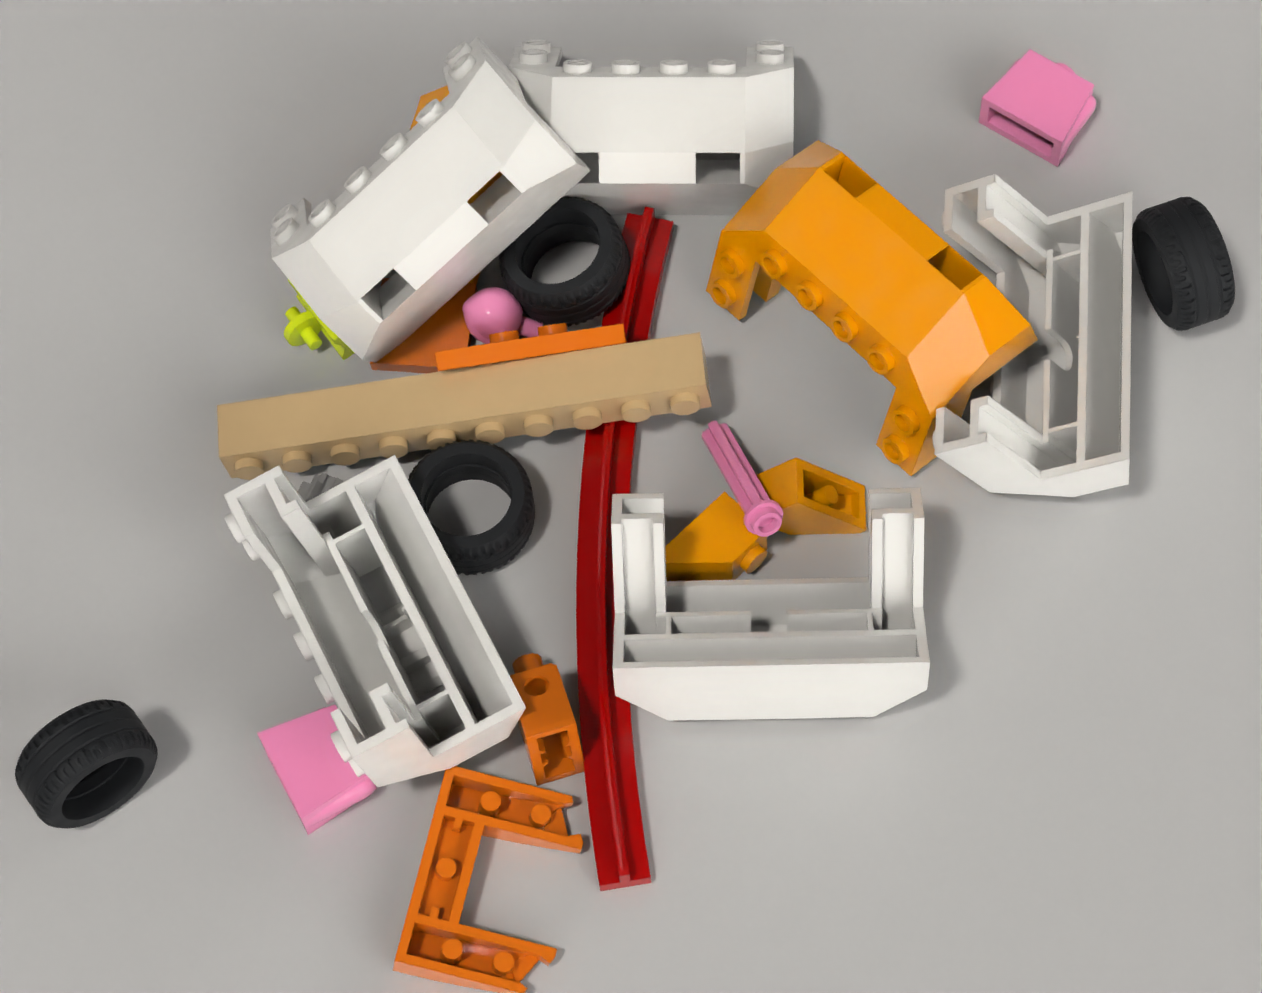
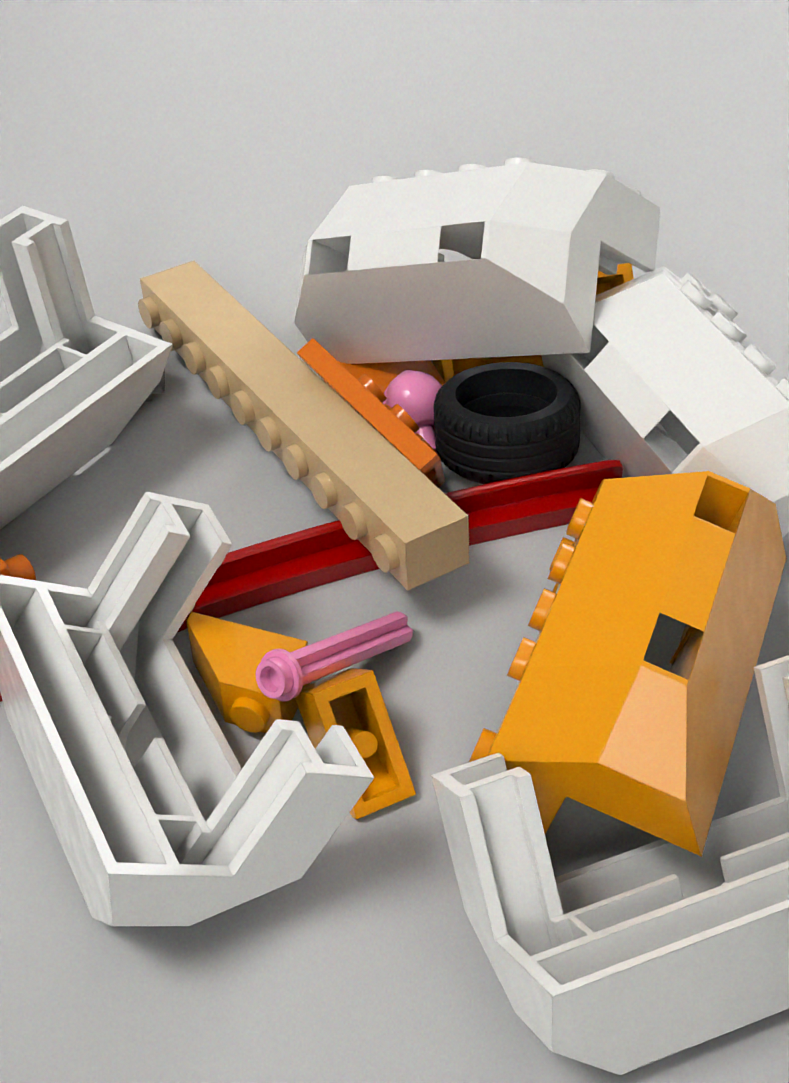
camera: 60 degrees right, 20 degrees down
(478, 462) = (181, 428): black tyre -> none

